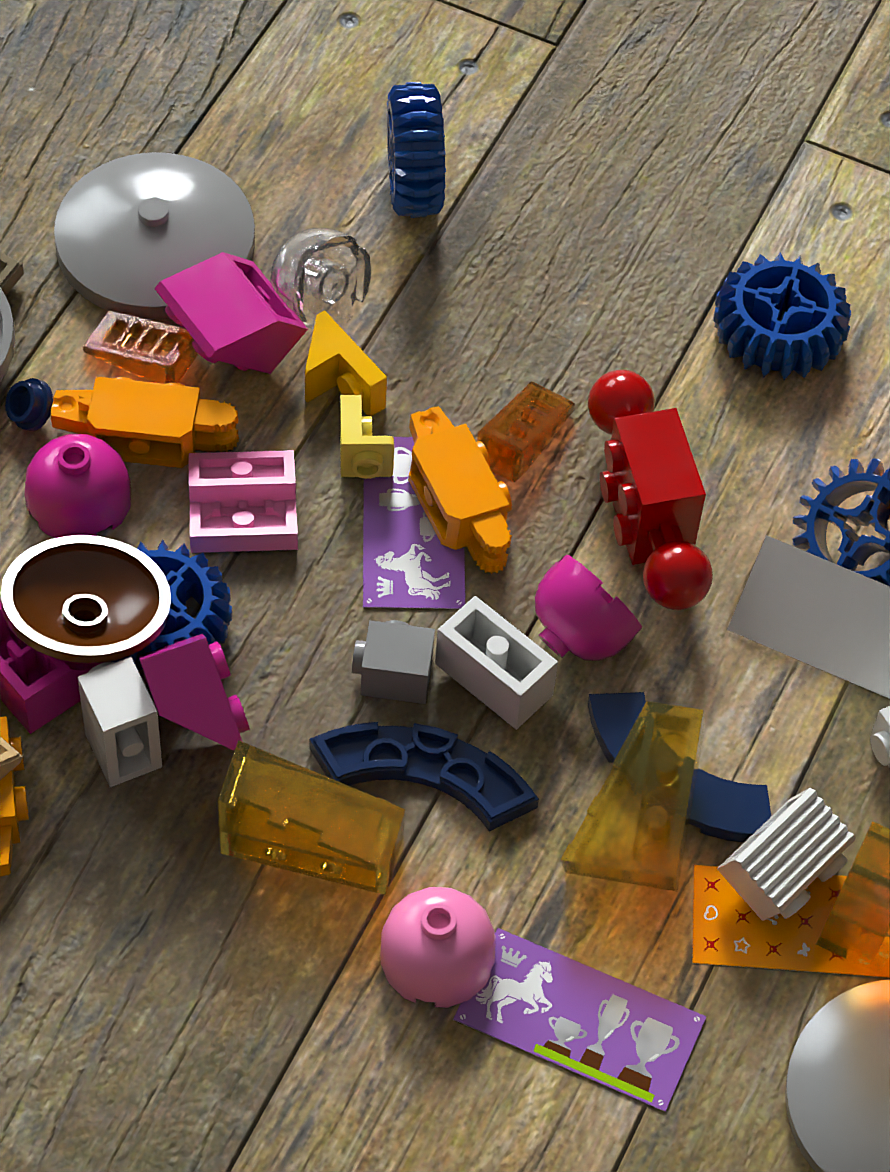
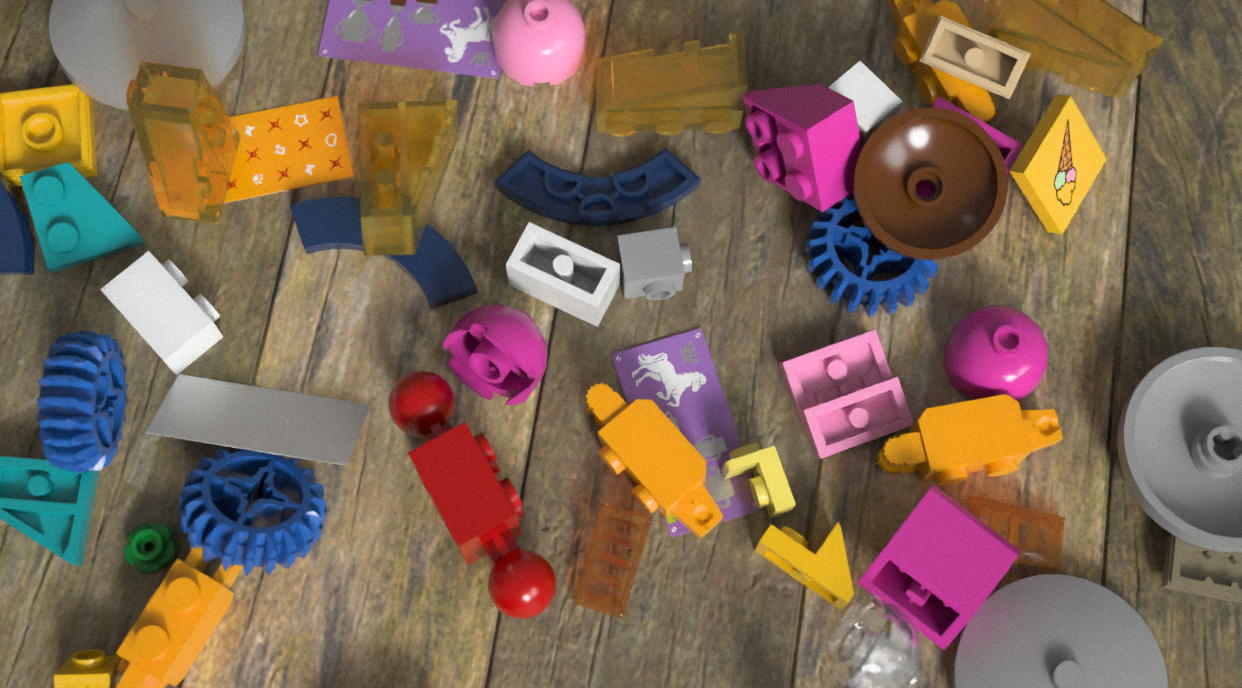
camera: 165 degrees right, 15 degrees up
(29, 403) = (1080, 427): dark blue plate -> none
(788, 855) = (274, 175): white brick -> none

